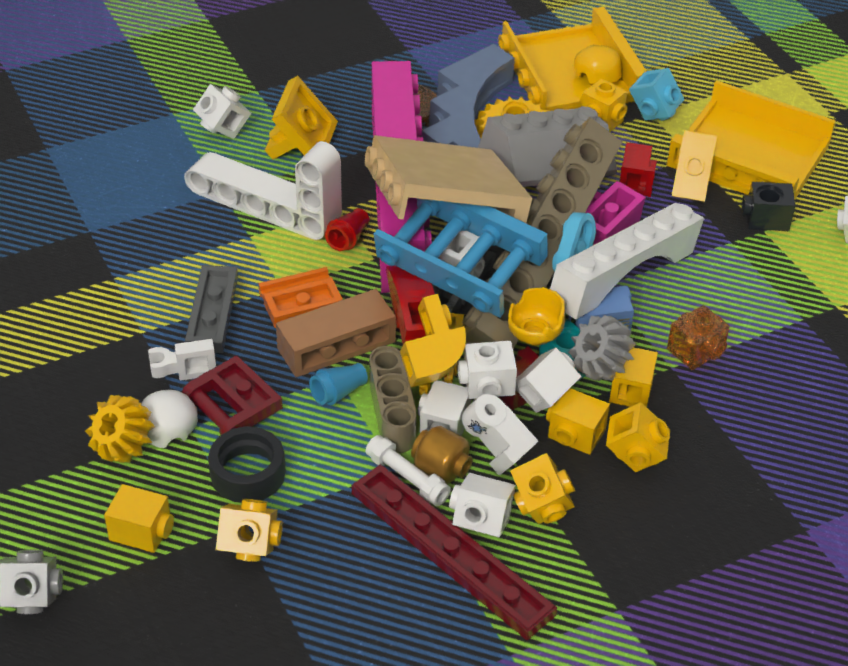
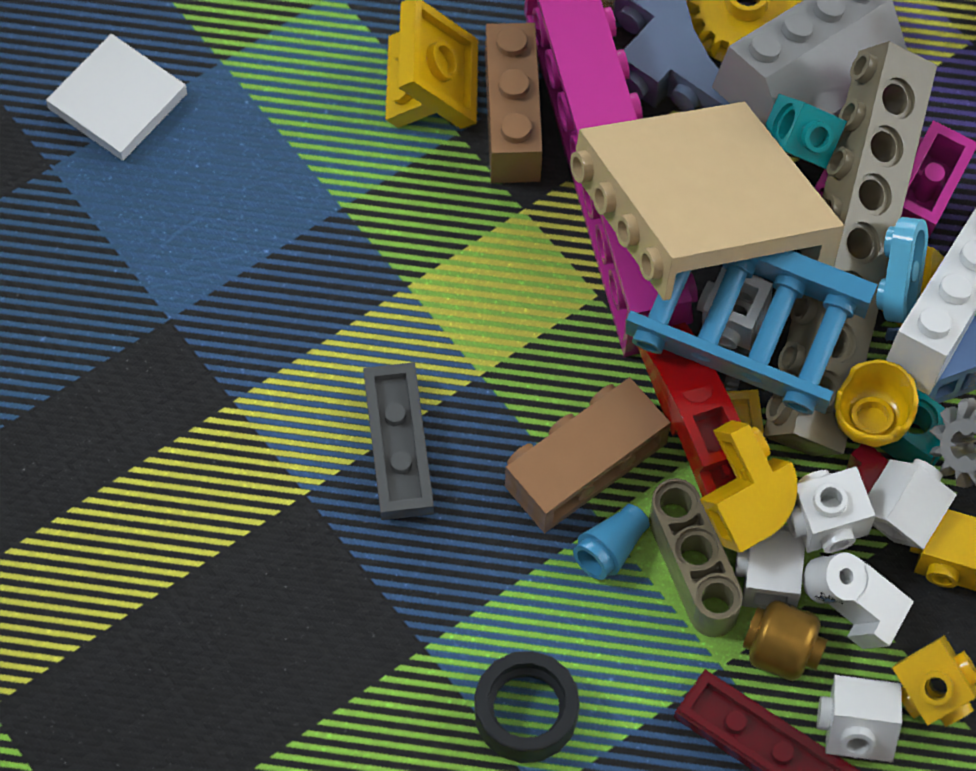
camera: 10 degrees left, 20 degrees up
(100, 119) = (116, 97): none -> white tile
(120, 428) = (321, 682): yellow gear -> none
(172, 415) = (390, 646): white hair -> none
(188, 360) = (394, 543): white plate -> none
(222, 111) = (304, 60): white brick -> none
(240, 389) = (482, 580): dark red plate -> none
(296, 207) = (475, 232): white beam -> none
(298, 294) = (518, 396): orange plate -> none
(345, 231) = (550, 258): red cone -> none
(351, 138) = (513, 103): none -> medium nougat brick
(431, 488) = (784, 696): white bar -> none
(528, 165) = (804, 130): none -> teal brick
(638, 168) = (954, 72): red brick -> none

